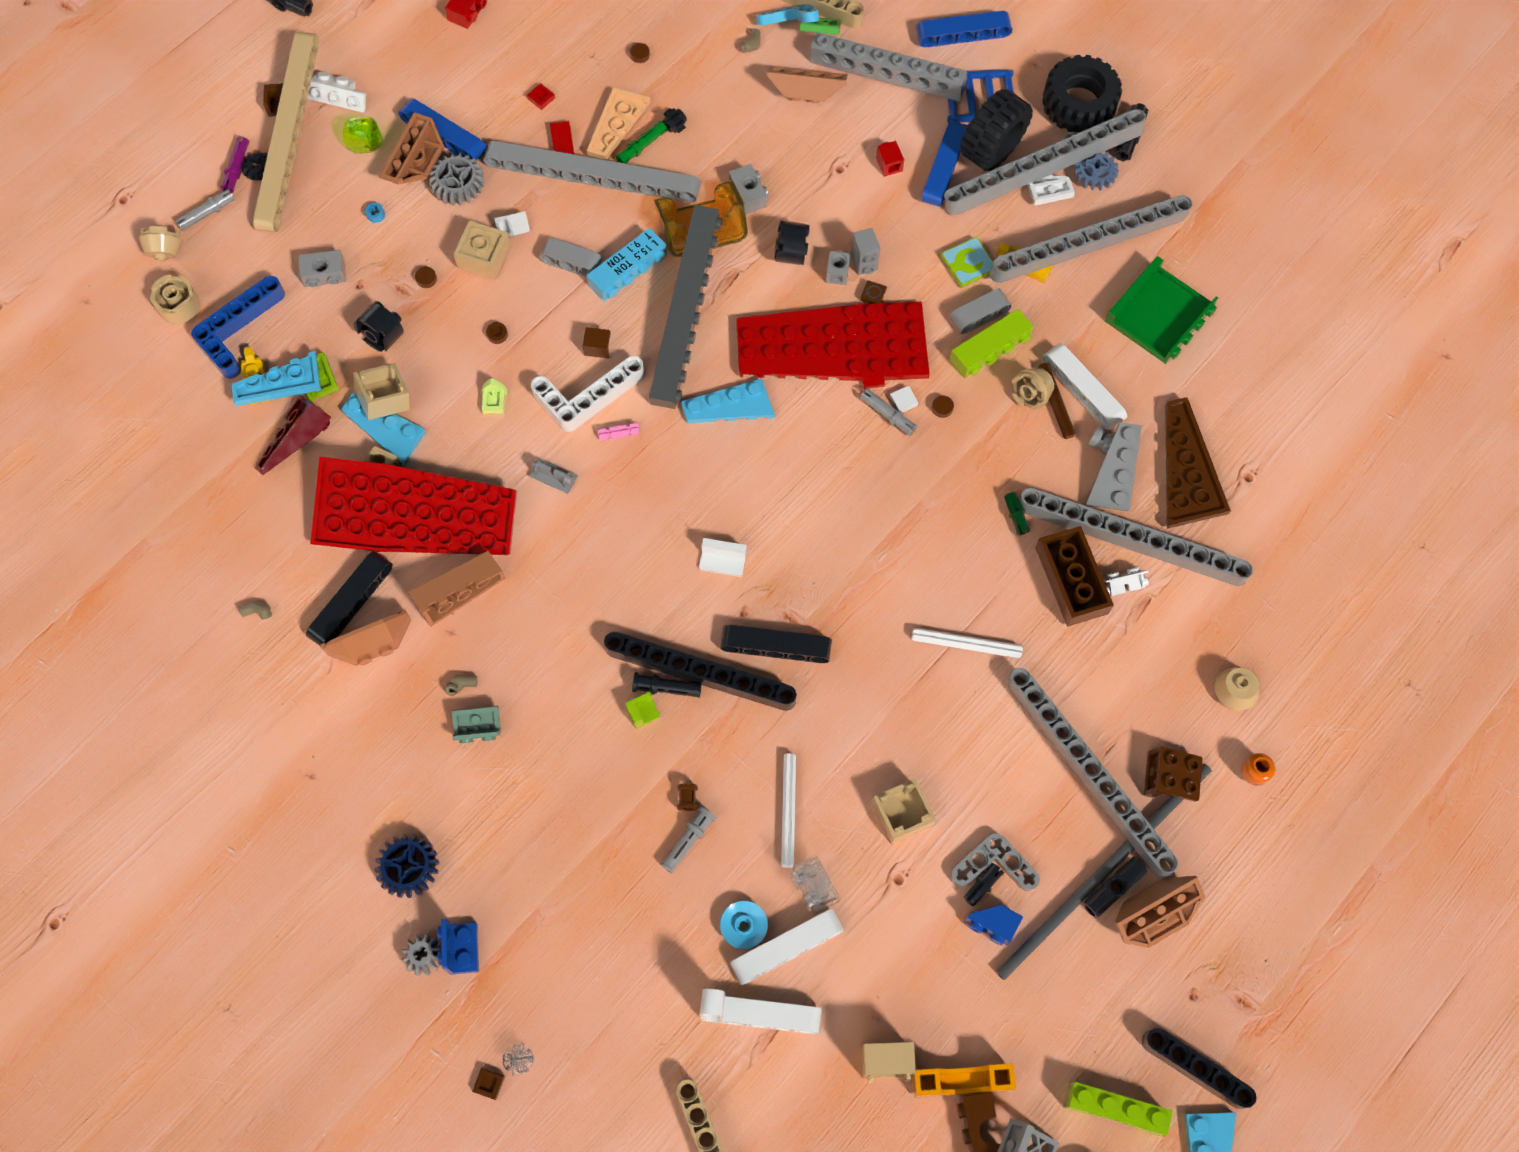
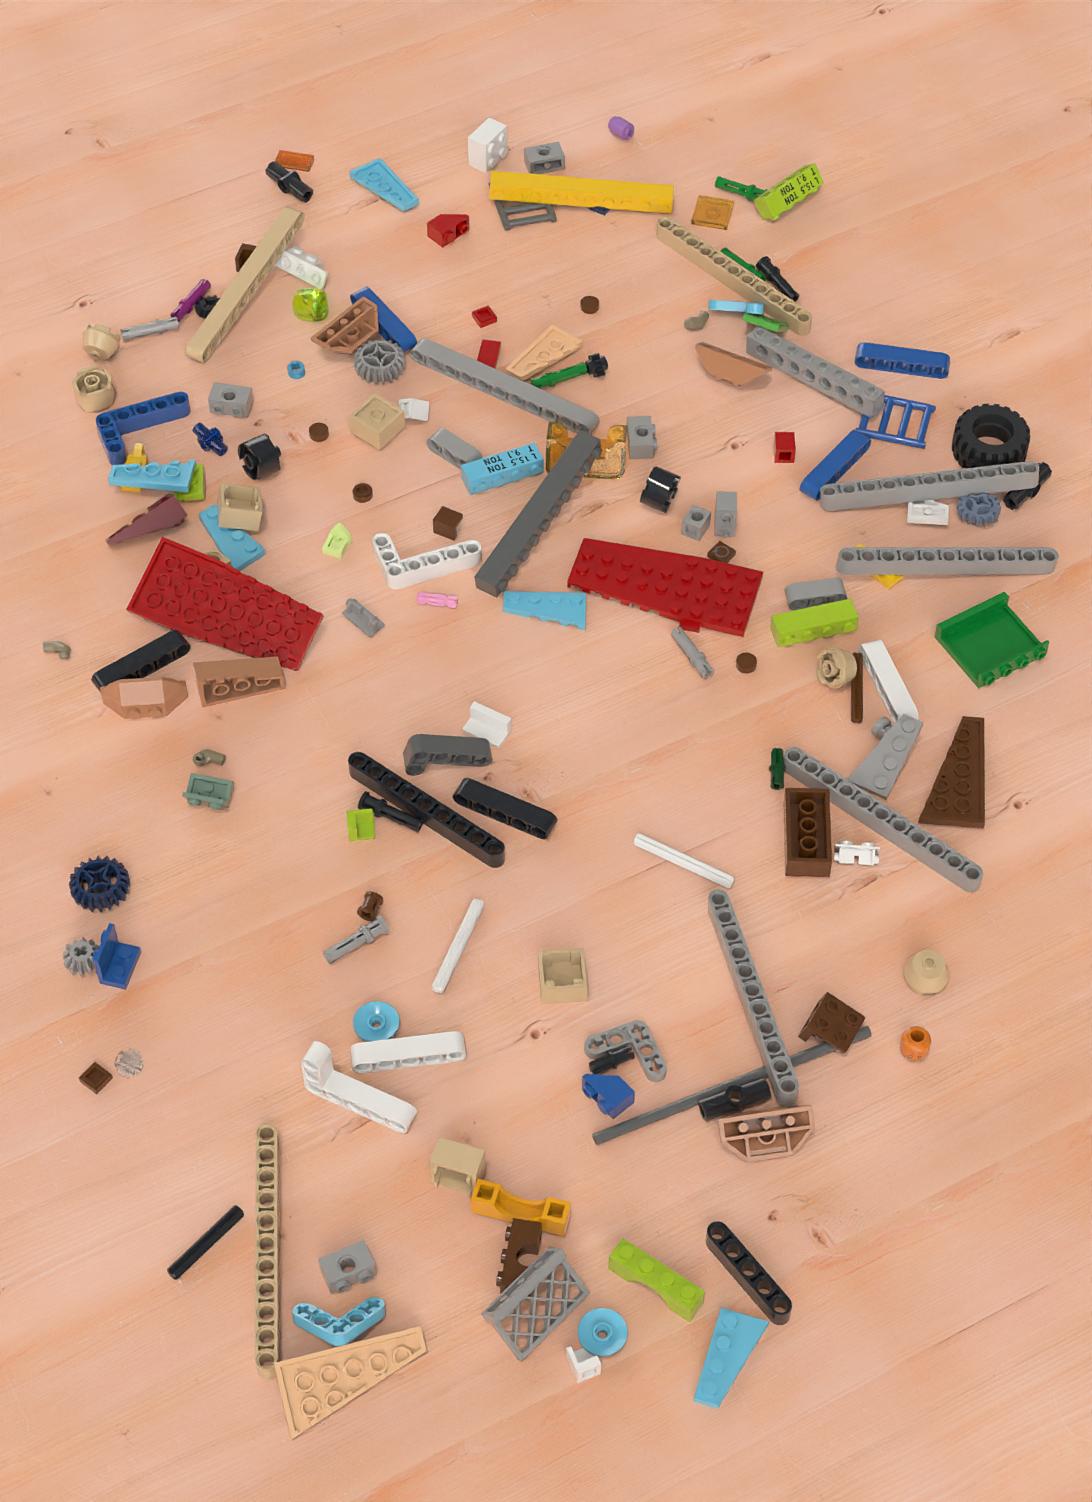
camera: 20 degrees right, 15 degrees down
(318, 319) = (210, 439): none -> clear blue axle
(695, 602) = (445, 750): none -> dark grey beam
(815, 885) = (453, 1006): clear slope -> none
(904, 399) = (712, 647): white tile -> none
(967, 262) = (820, 551): tile -> none
(996, 129) = (889, 443): black tyre -> none

